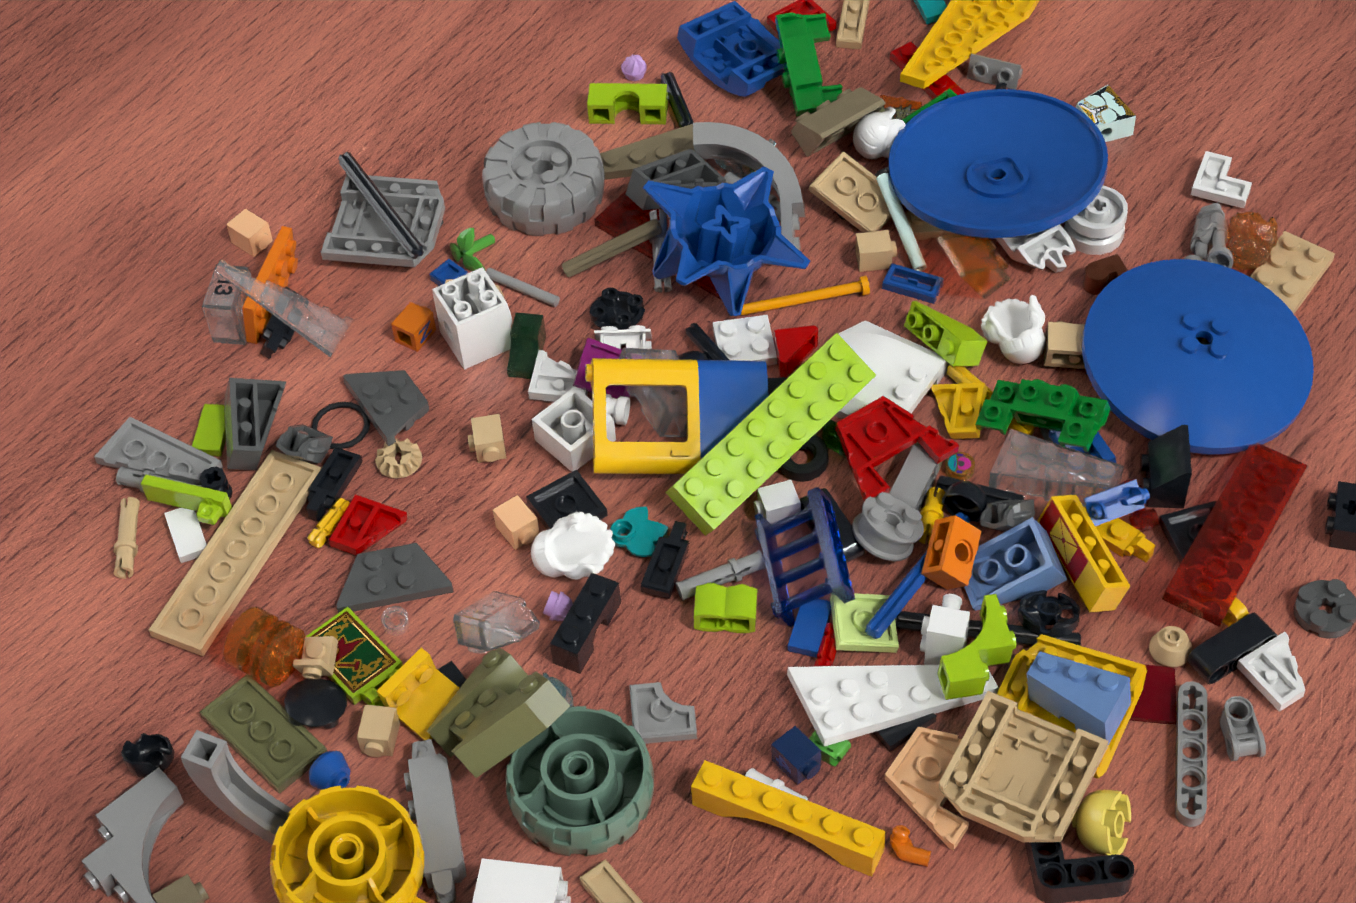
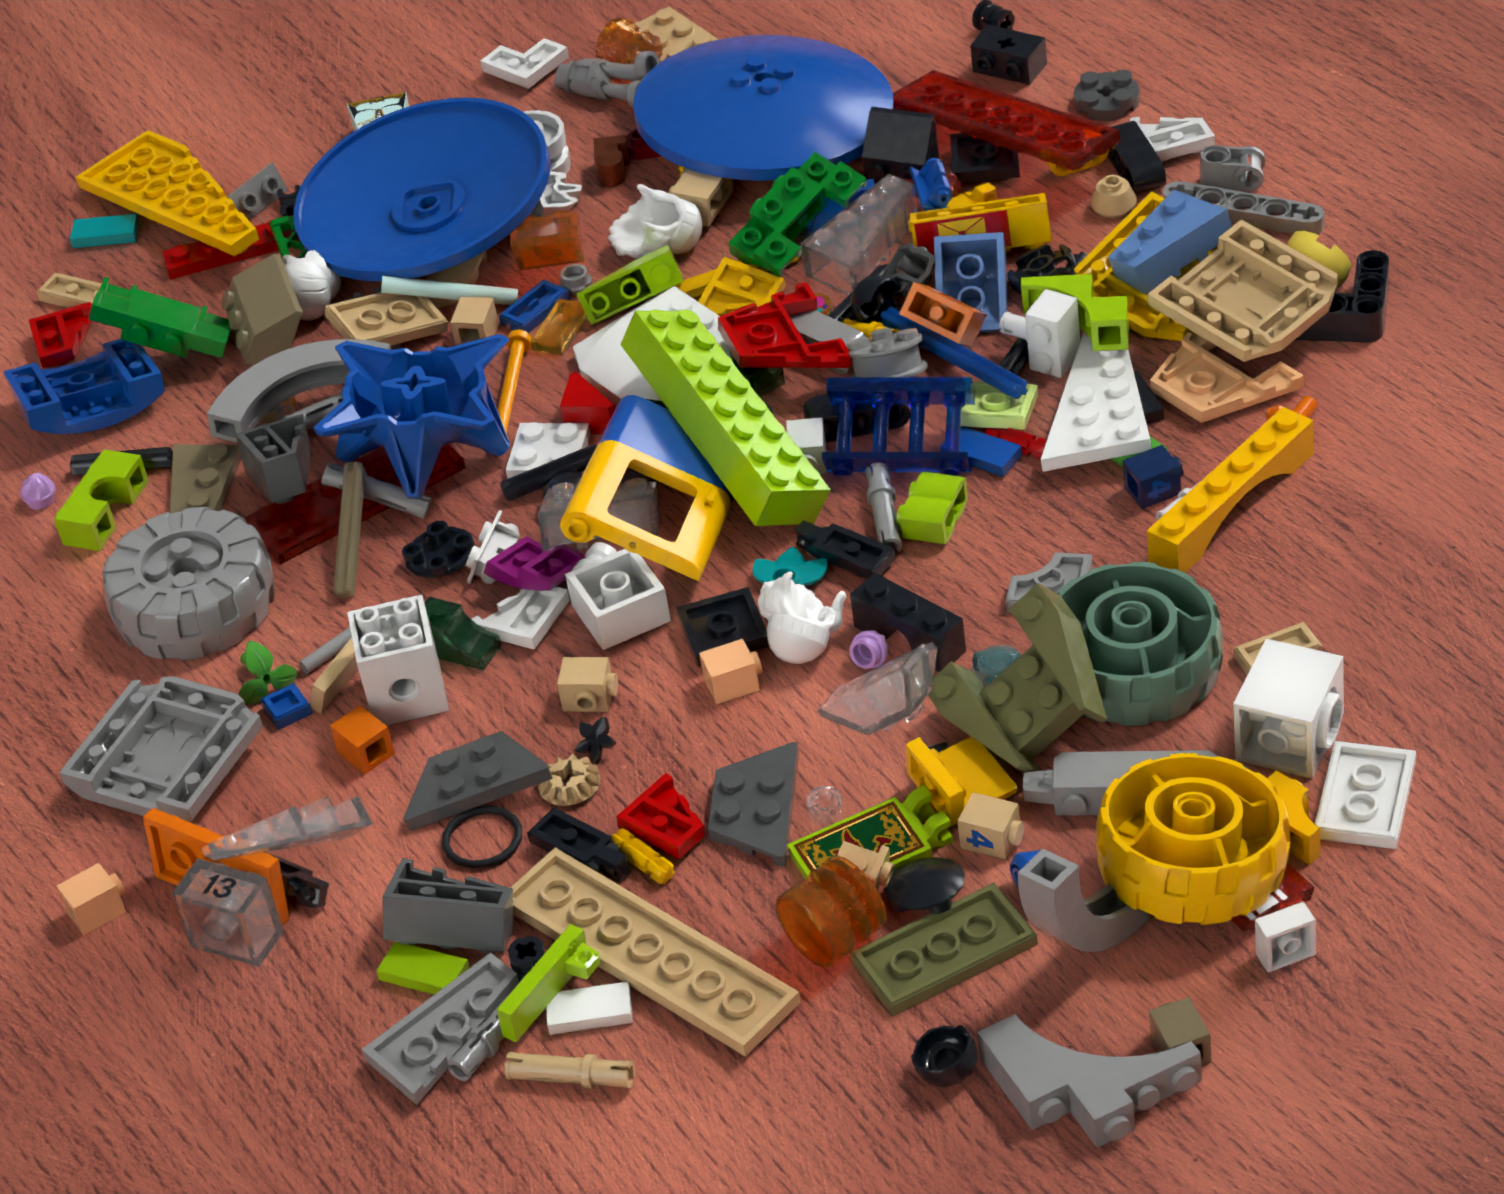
camera: 70 degrees left, 10 degrees down
(300, 443) = (511, 856): dark grey hand -> none
(381, 205) = (145, 733): black axle -> none
(438, 460) = (596, 738): none -> black plant
(889, 306) = (559, 327): none -> clear yellow tile
(950, 297) = (574, 278): none -> light grey plate

